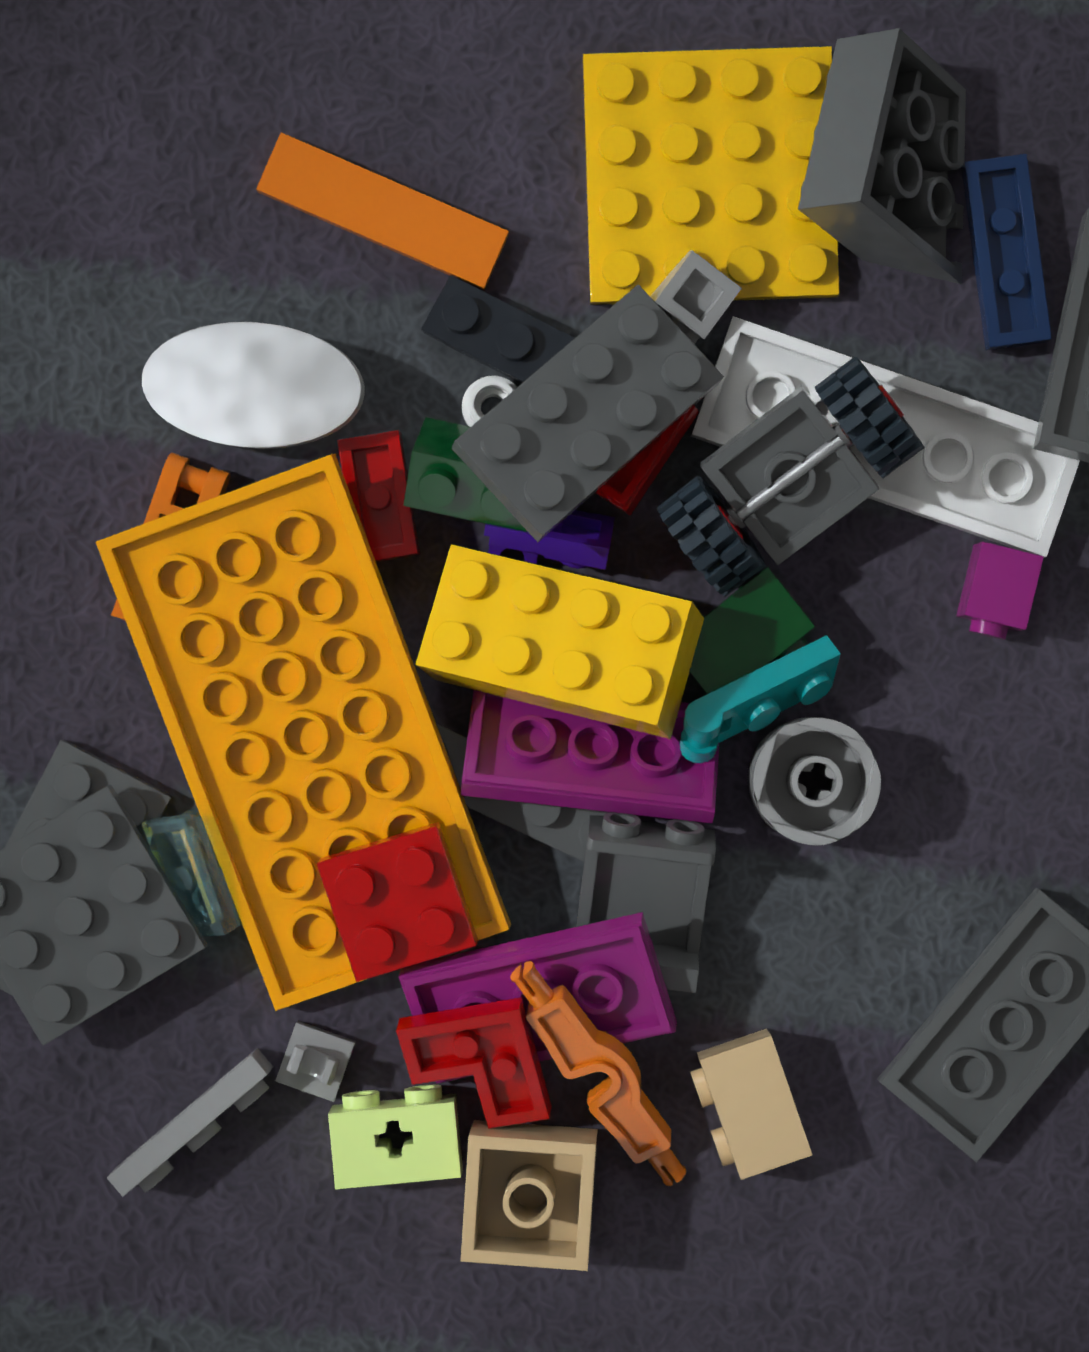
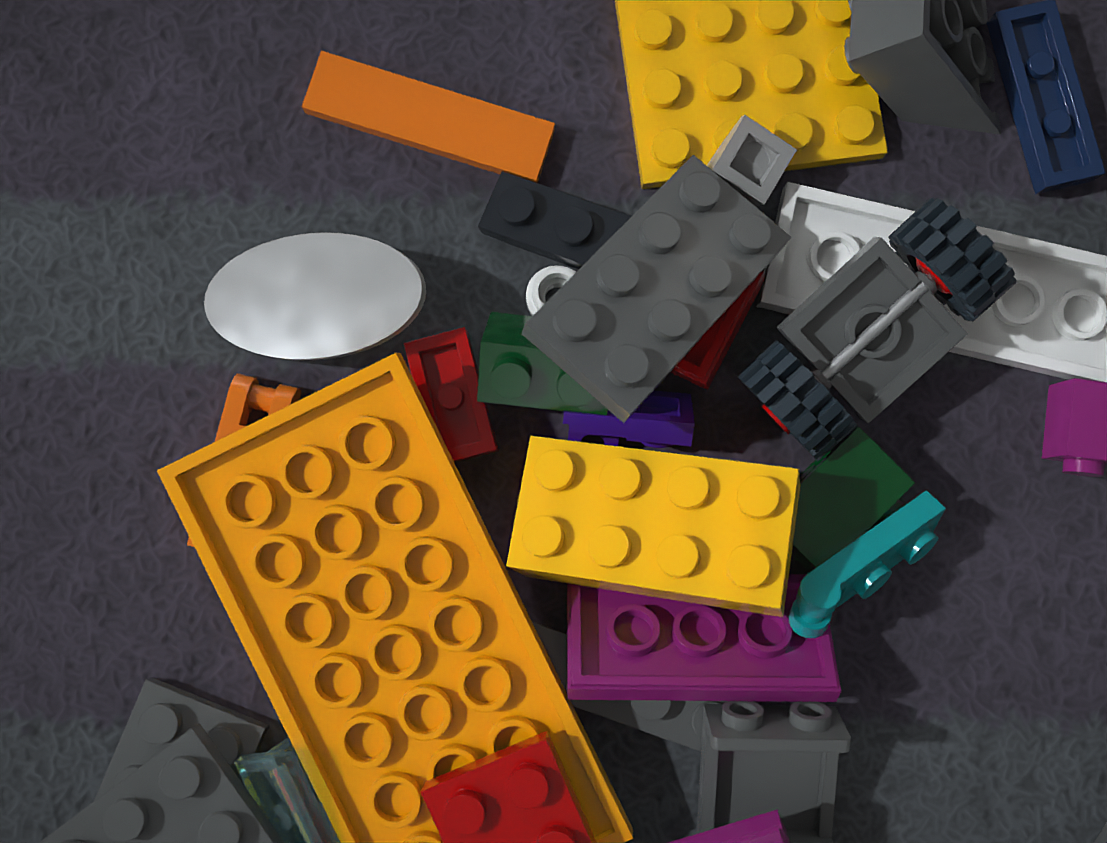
camera: 10 degrees left, 5 degrees down
(828, 813) = (970, 651): light grey brick -> none

